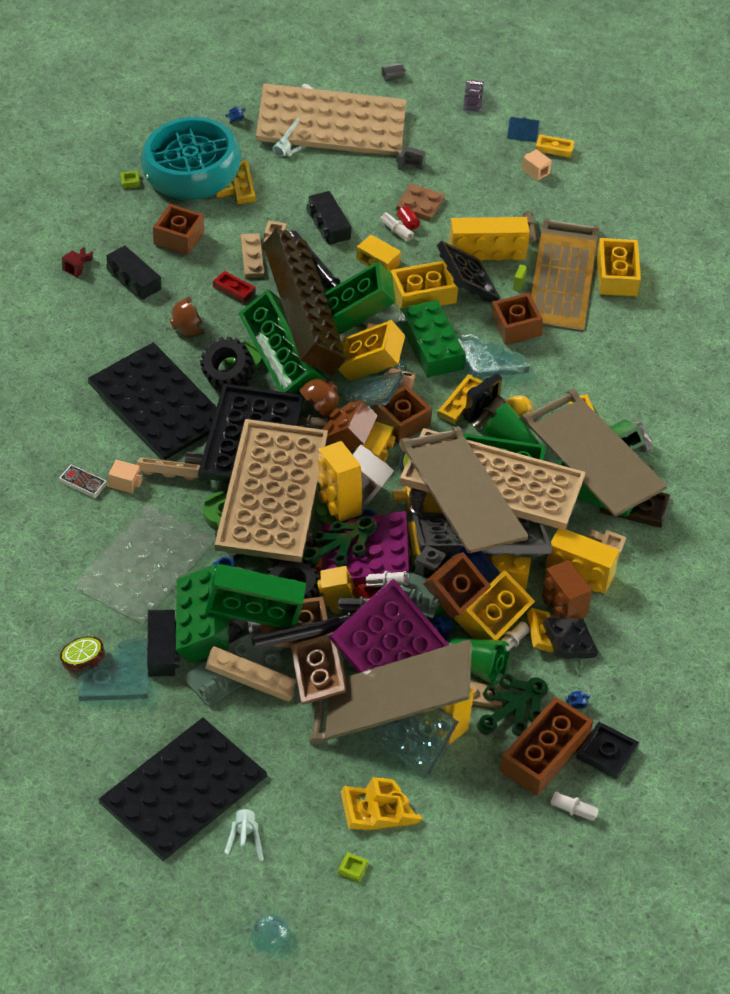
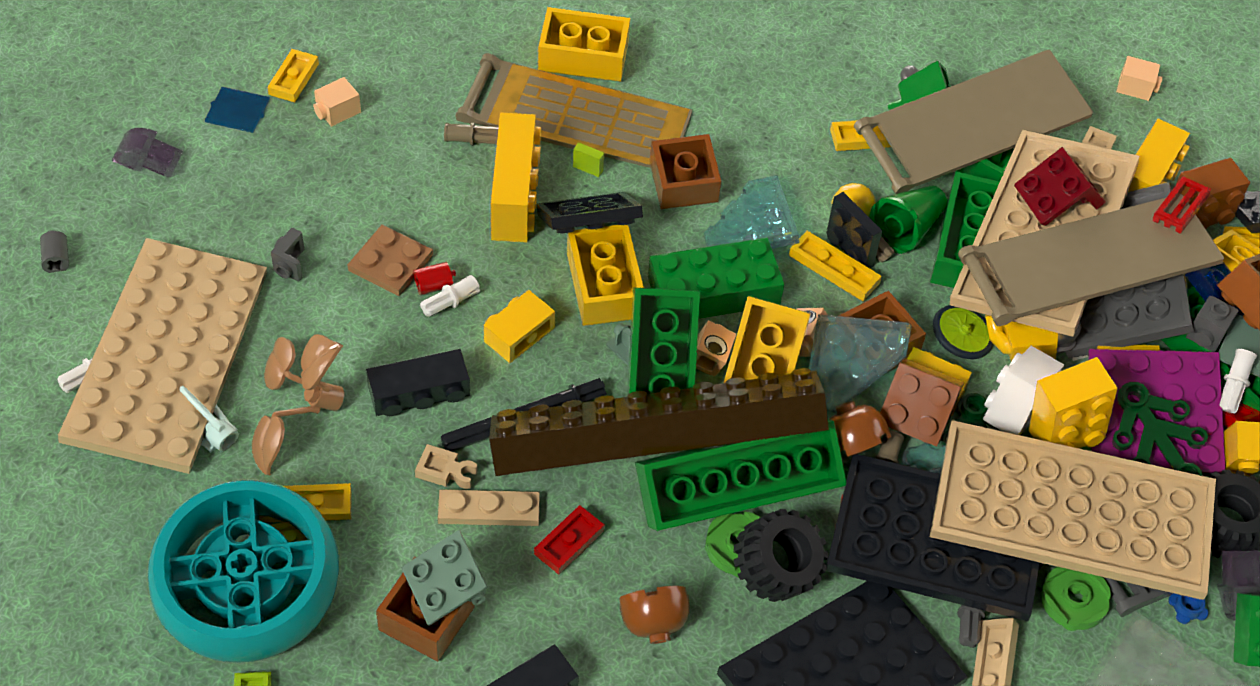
camera: 85 degrees left, 5 degrees up
(189, 223) = (445, 578): none -> sand green hinge
(235, 114) = (111, 496): blue plate -> none
(312, 177) = (315, 361): none -> medium nougat plant
(514, 531) = (1172, 219): none -> red tile
(525, 477) = (1056, 187): none -> dark red bracket
(686, 570) = (1139, 78): none -> light nougat brick

